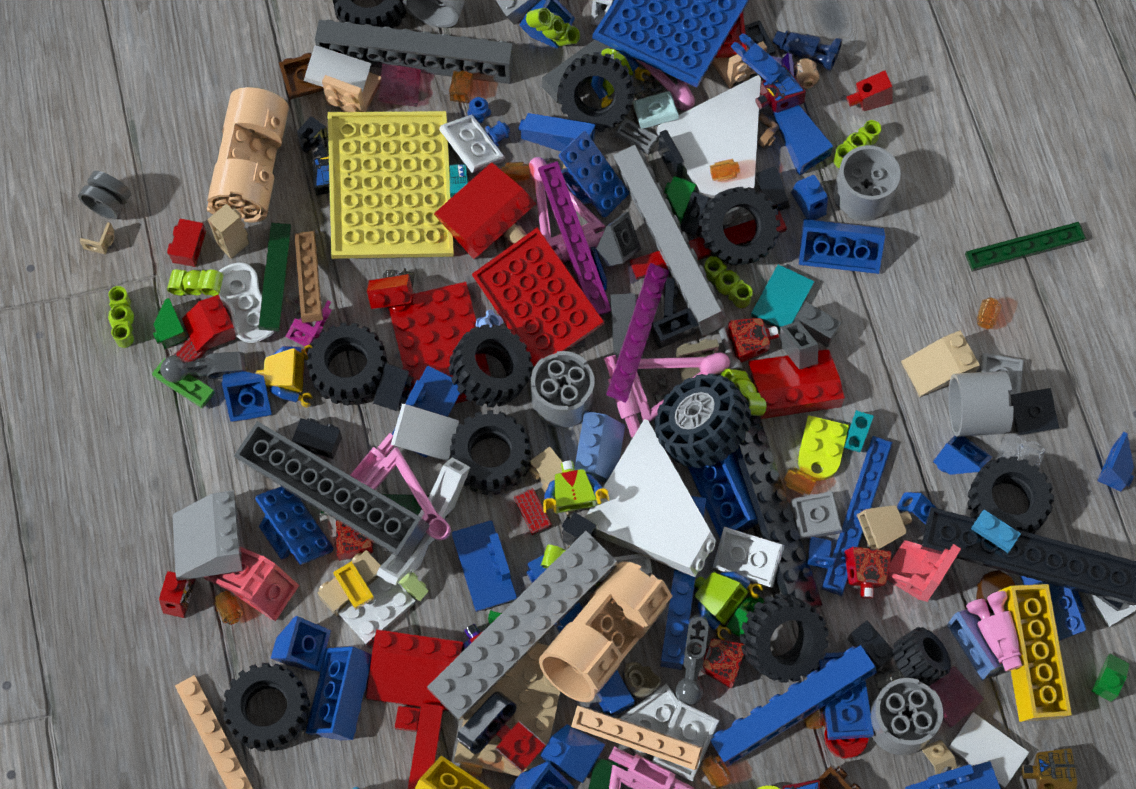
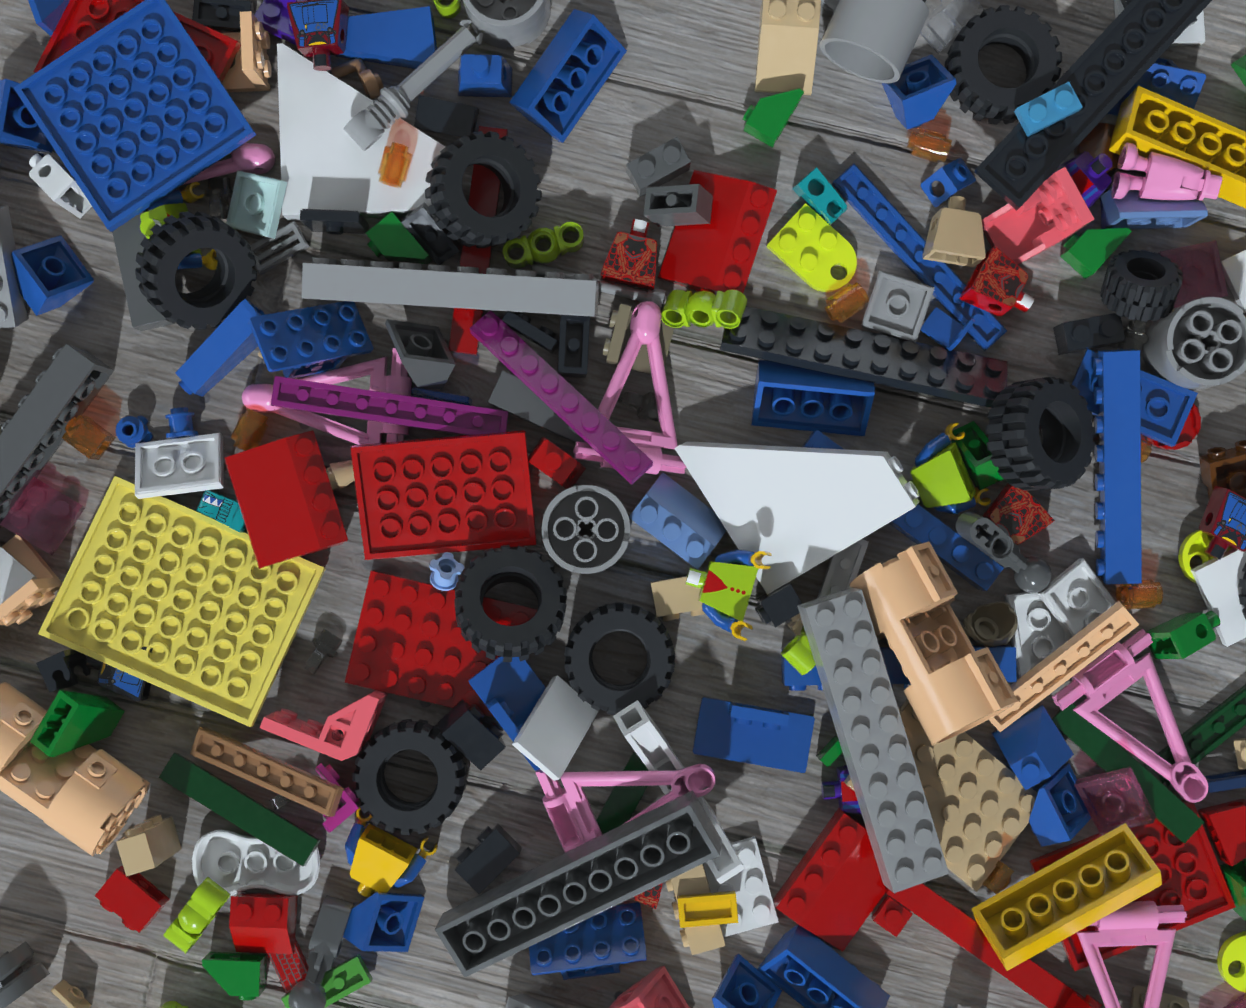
camera: 60 degrees left, 20 degrees up
(285, 156) = (75, 722): none -> green slope
(368, 311) = (354, 720): none -> coral bracket
(390, 291) = (338, 675): red brick -> none
(413, 586) = (741, 832): yellowish green piece -> none
(486, 722) = (962, 837): black beam -> none
(519, 745) = (1000, 810): red piece -> none
(532, 511) = (713, 643): red tile -> none
(553, 27) = (65, 274): lime piece -> none
(595, 352) = (556, 463): none -> red torso
(702, 420) = (723, 381): black wheel -> none
(738, 143) = (395, 101): none -> light grey piece
(748, 556) = (913, 417): white tile -> none
(758, 59) = (265, 33): blue hinge -> none
(782, 297) = (598, 188): teal tile -> none
(891, 377) = (771, 115): none -> green slope
(931, 617) = (1092, 248): none -> green slope
(932, 482) = (929, 145): none -> clear orange brick
(963, 585) = (1089, 175): none -> dark purple torso

